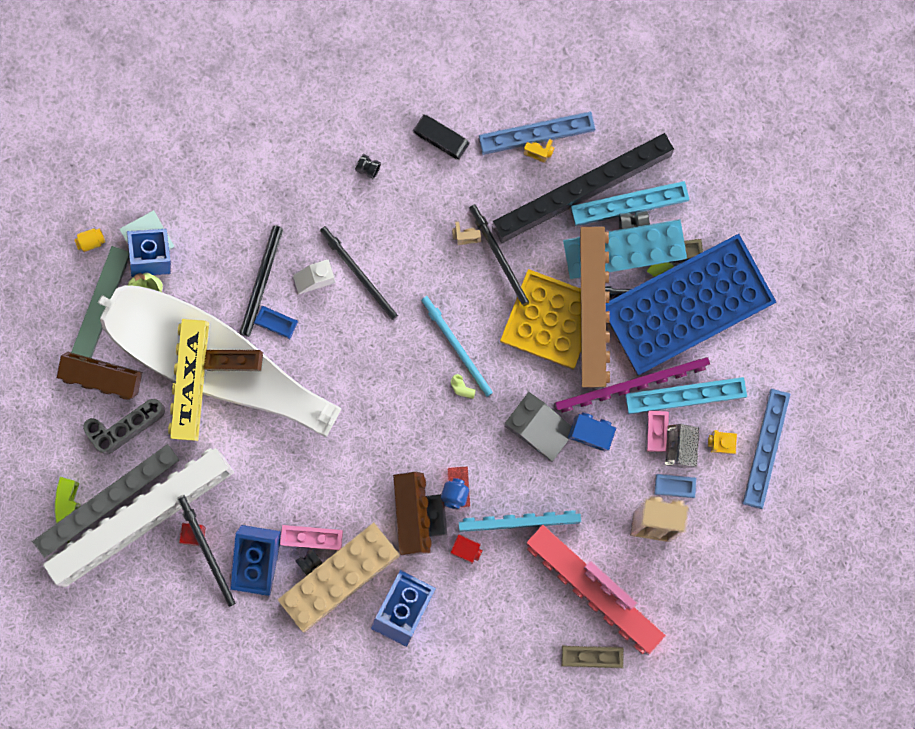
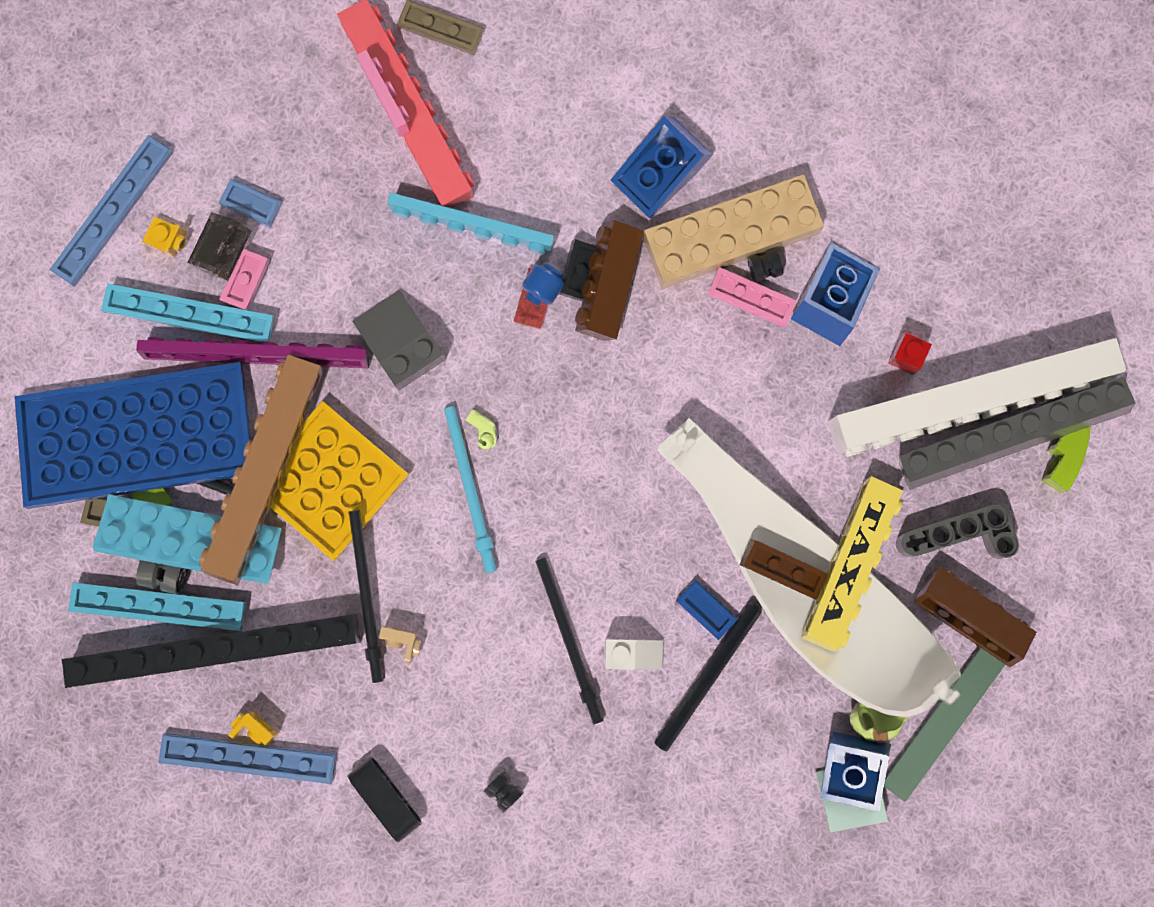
camera: 165 degrees left, 5 degrees up
(89, 239) = (933, 821): yellow brick -> none
(189, 515) = (908, 368): black bar -> none
(466, 549) = (553, 212): red brick -> none
(592, 432) = (331, 305): blue brick -> none
(659, 519) = (283, 135): tan brick -> none

